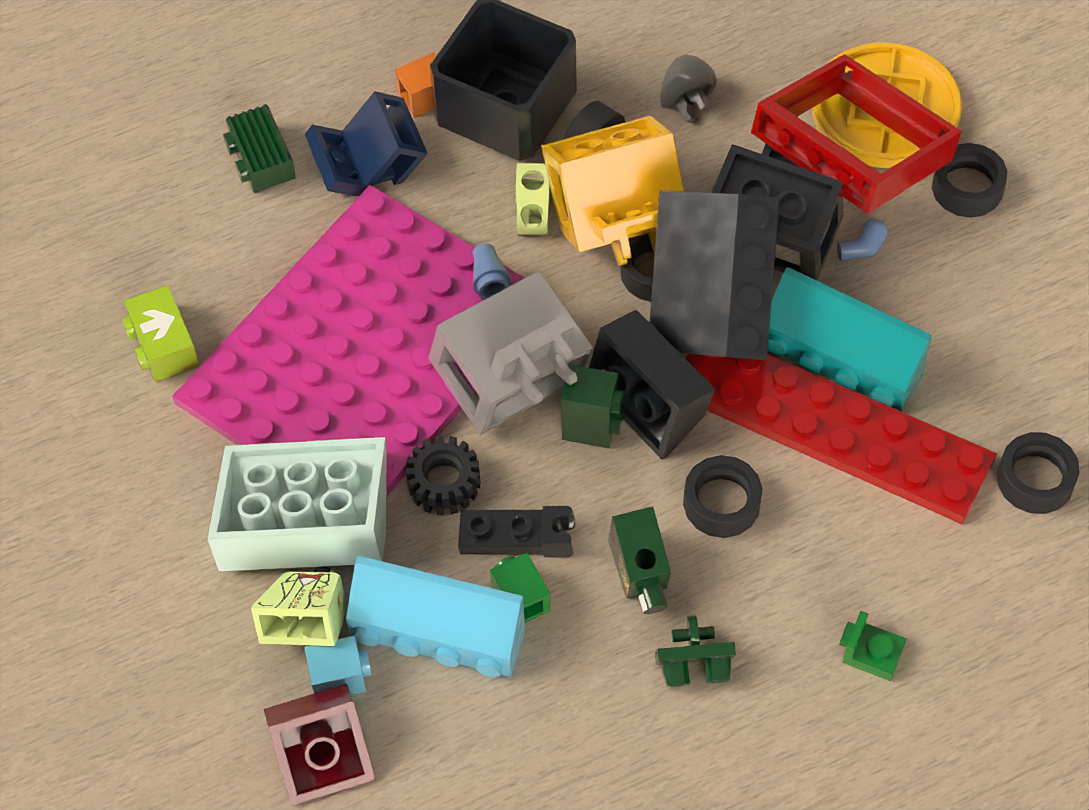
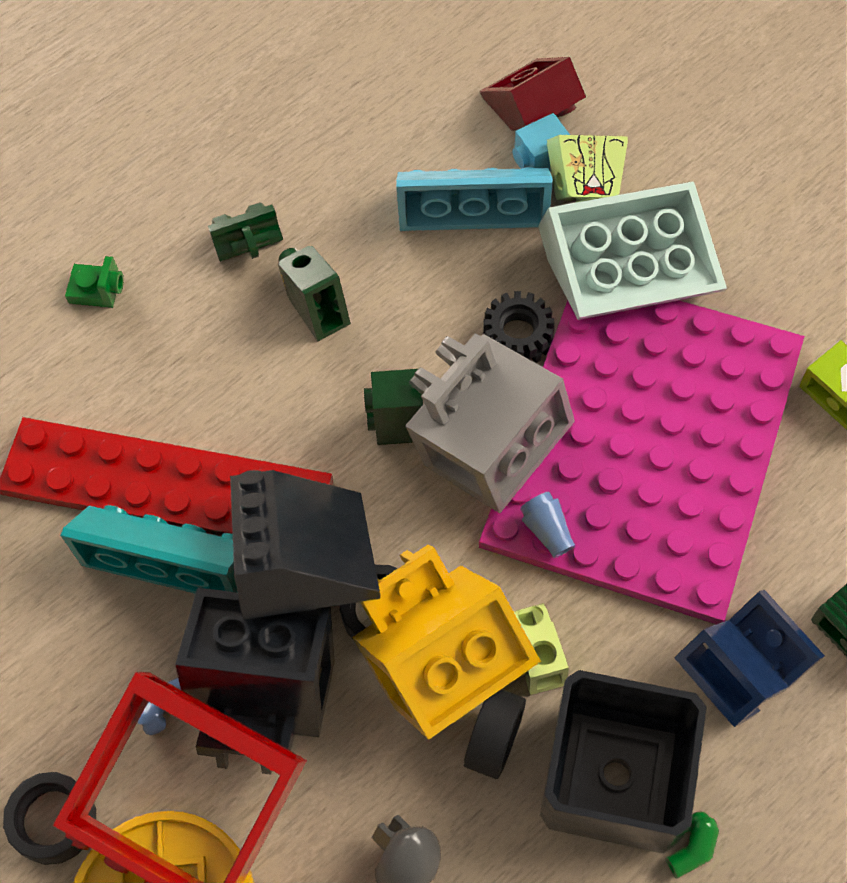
camera: 165 degrees right, 5 degrees up
(415, 84) = (723, 772): orange brick -> none
(517, 531) = (432, 299): black plate -> none
(522, 578) = (412, 245): green brick -> none
(660, 387) = (345, 449): black slope -> none
(727, 469) = (249, 351): black tyre -> none

